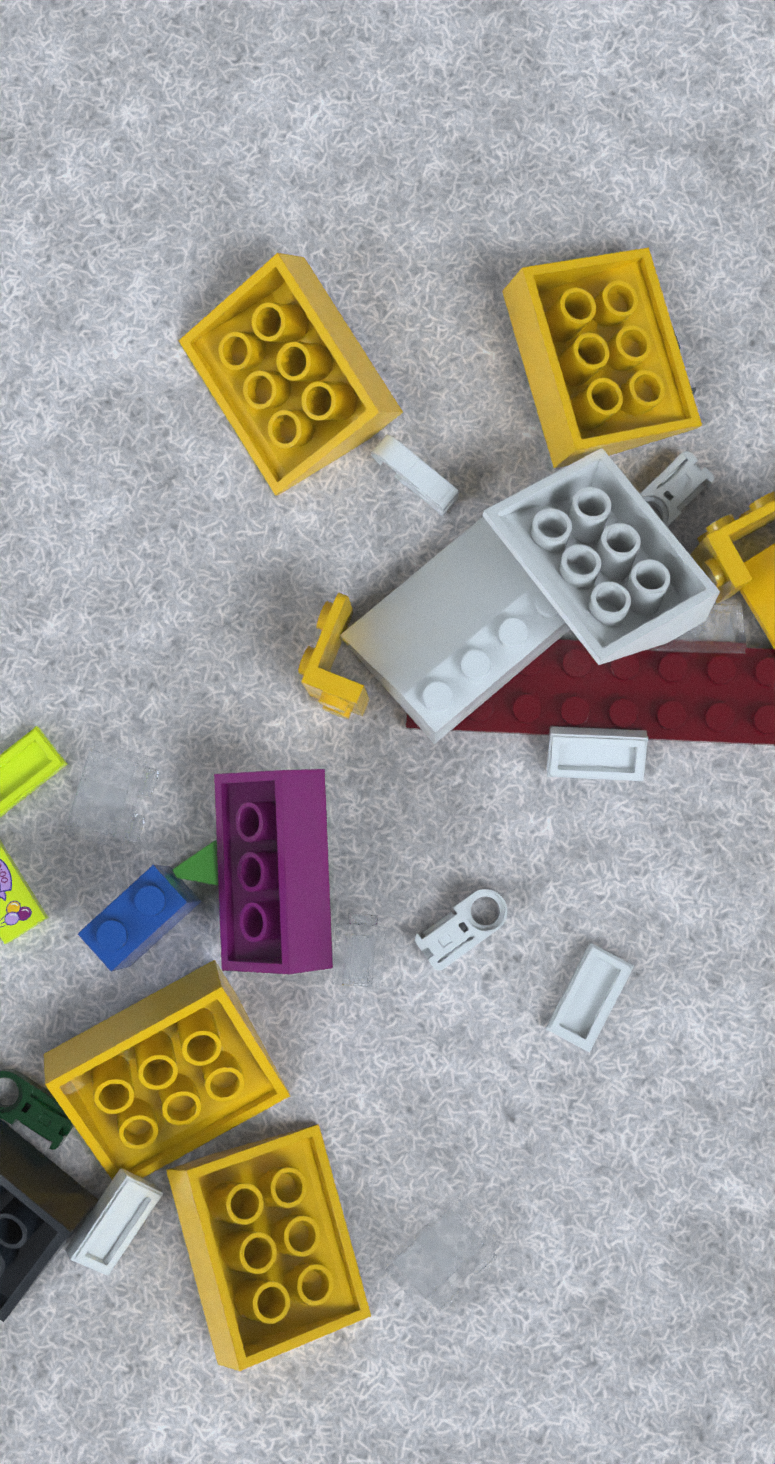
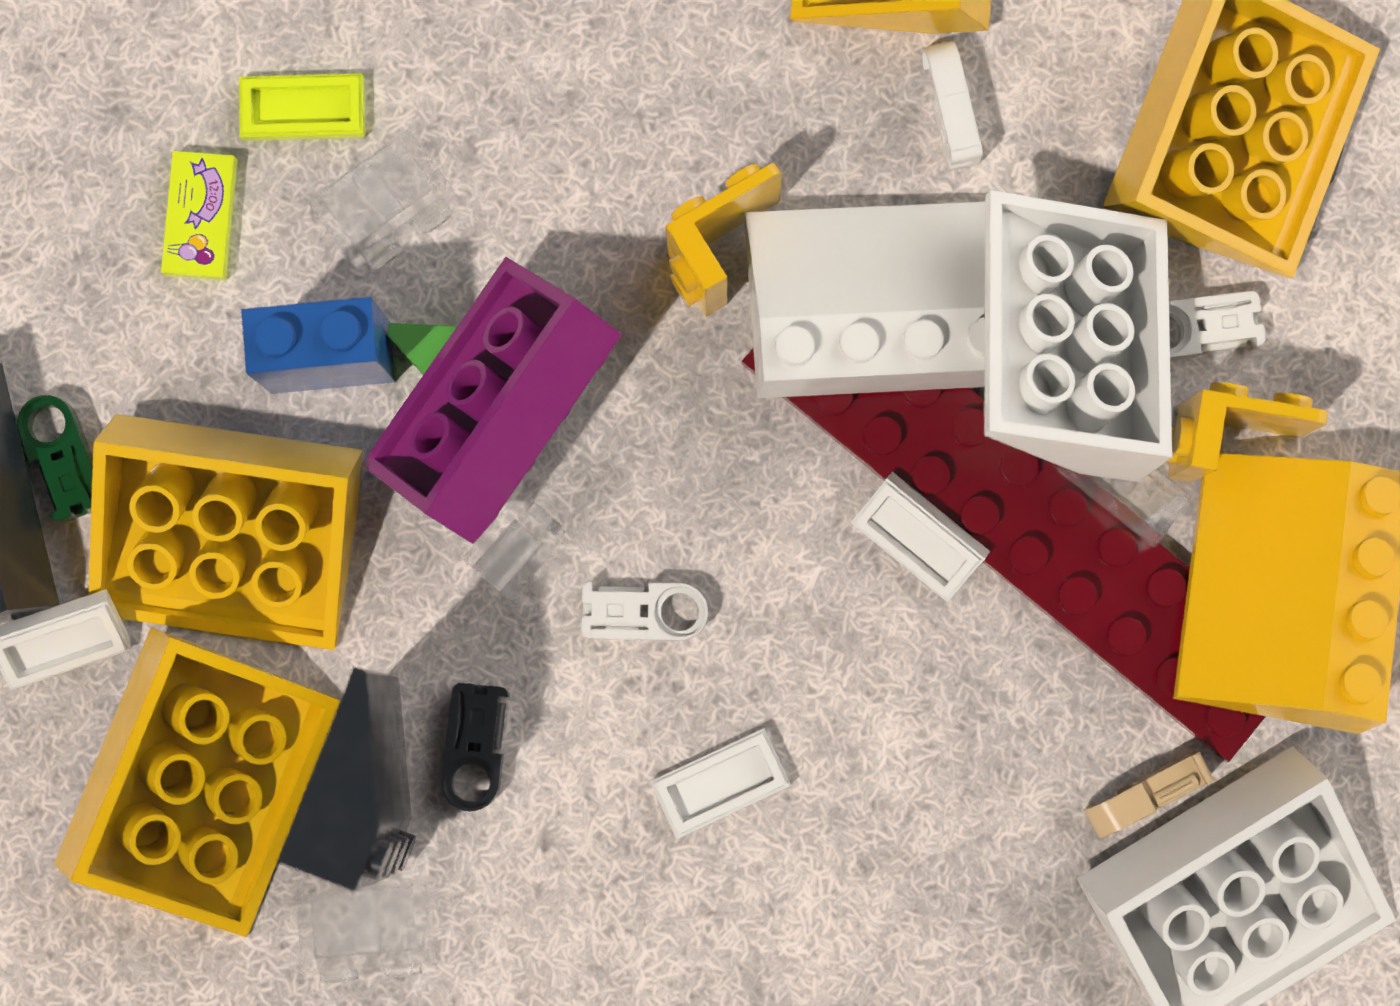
camera: 30 degrees right, 0 degrees up
(387, 1194) = (358, 795): none -> black slope
(417, 1085) = (472, 736): none -> black piece

